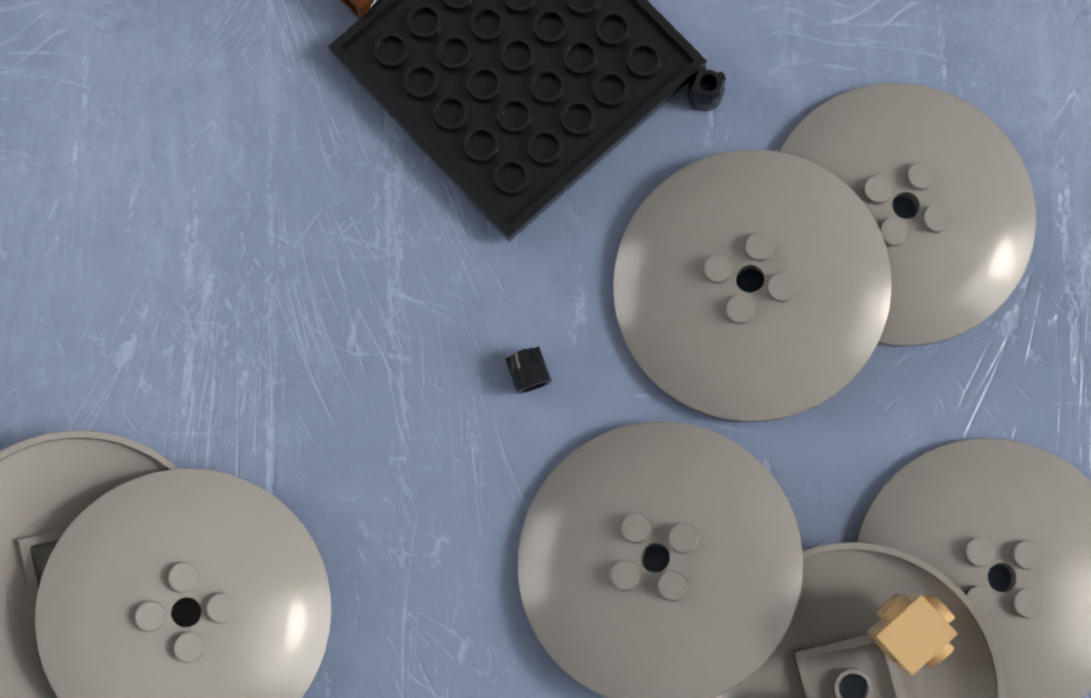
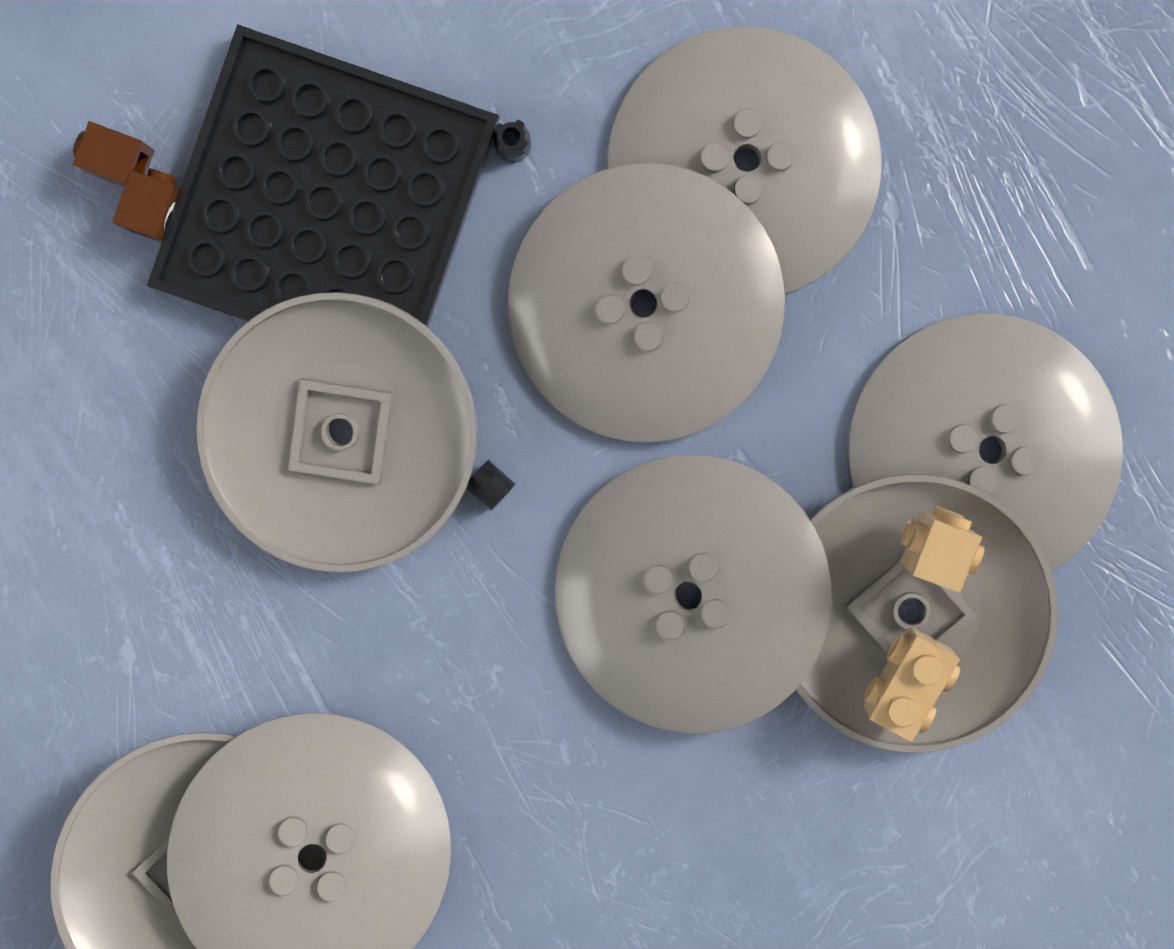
camera: 25 degrees left, 10 degrees up
(356, 238) = (271, 445): none -> light grey dish

